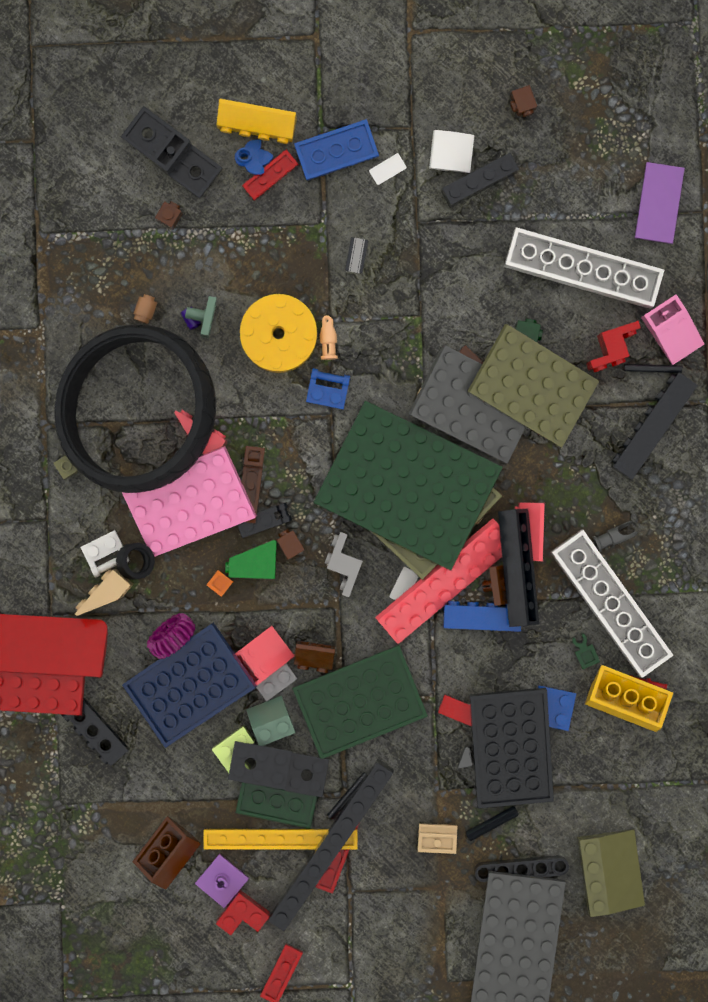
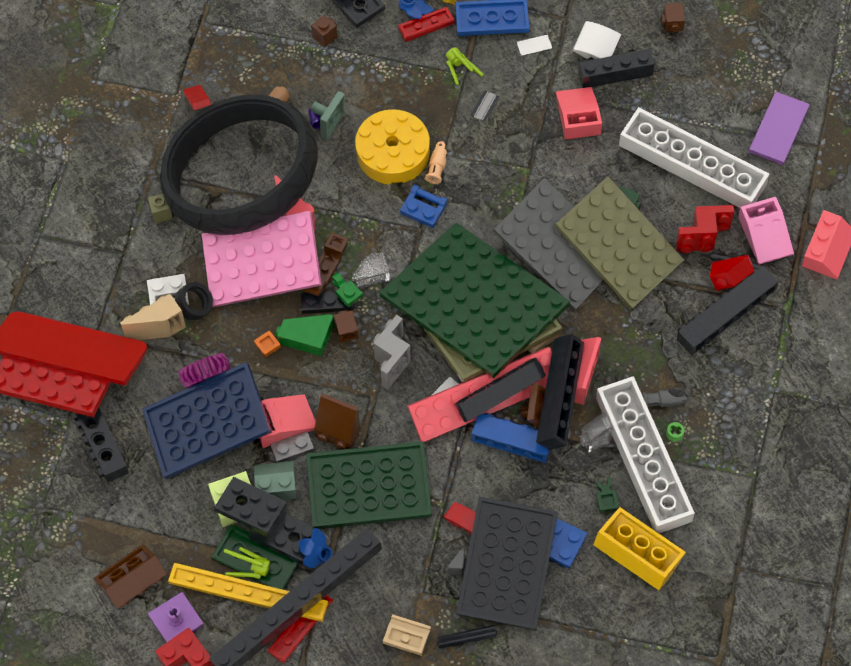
camera: 15 degrees right, 25 degrees down
(64, 334) = (197, 97): none -> red tile
(282, 510) = (347, 291): none -> green plate
(283, 815) = (259, 564): none -> lime plant
(297, 477) = (371, 271): none -> clear slope
(313, 209) = (457, 58): none -> lime plant
(330, 782) = (313, 548): none -> blue plate
(454, 240) = (579, 113): none -> coral slope
(460, 579) = (500, 389): none -> black beam
(560, 594) = (596, 433): none -> clear slope
(634, 572) = (675, 426): none -> bright green bush
(648, 388) = (730, 272): none -> red slope

